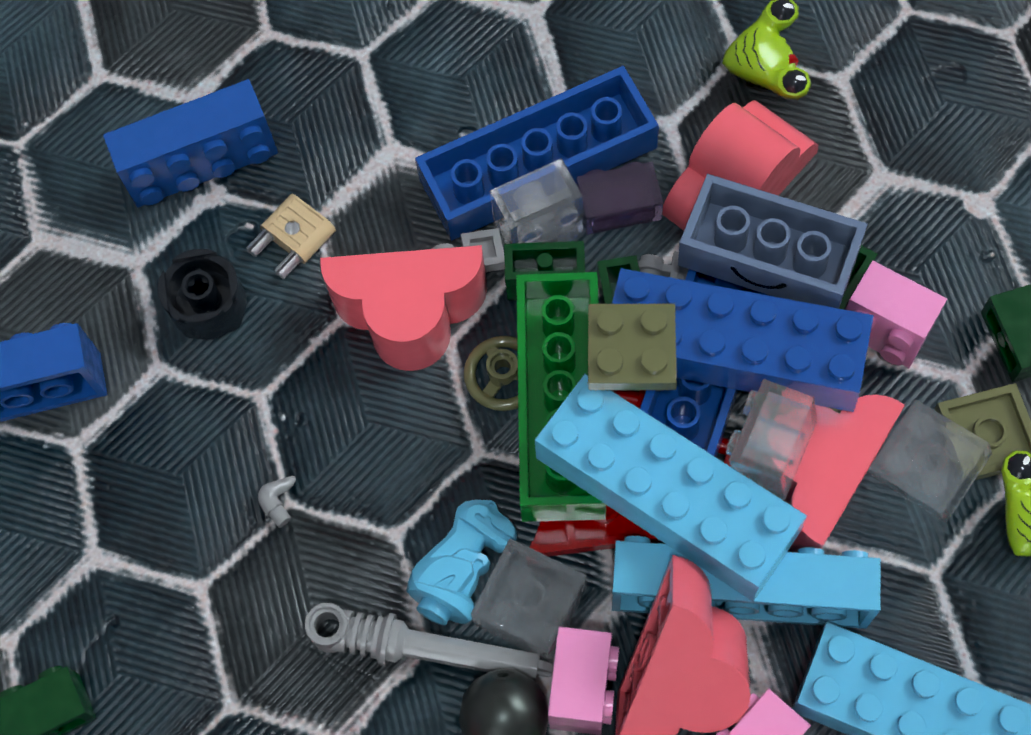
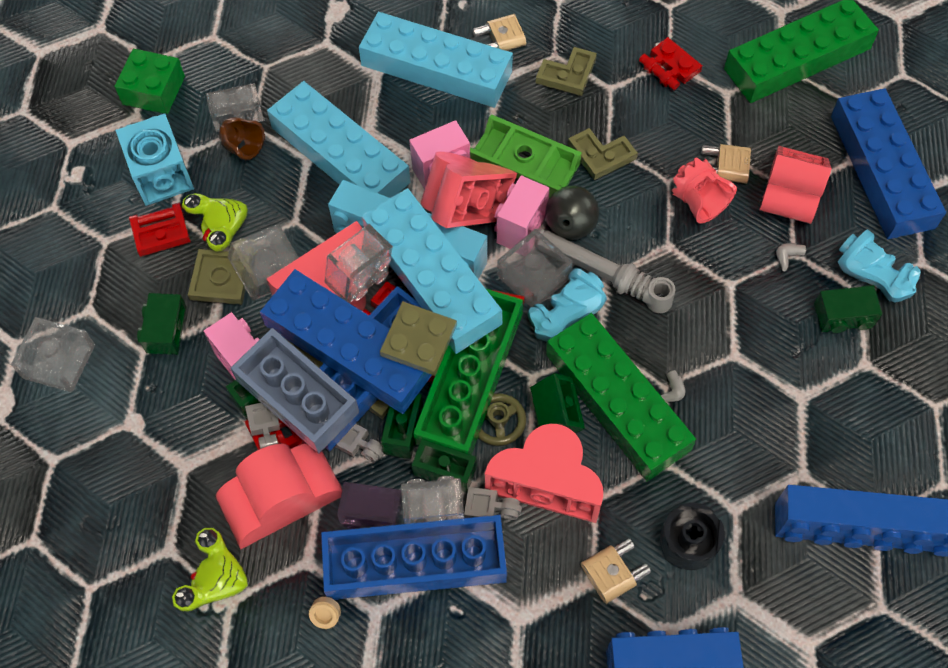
camera: 165 degrees left, 5 degrees down
(348, 452) = (620, 397): none -> green brick
(425, 399) = (557, 402): none -> dark green brick
(615, 62) = (324, 612): none -> tan tile

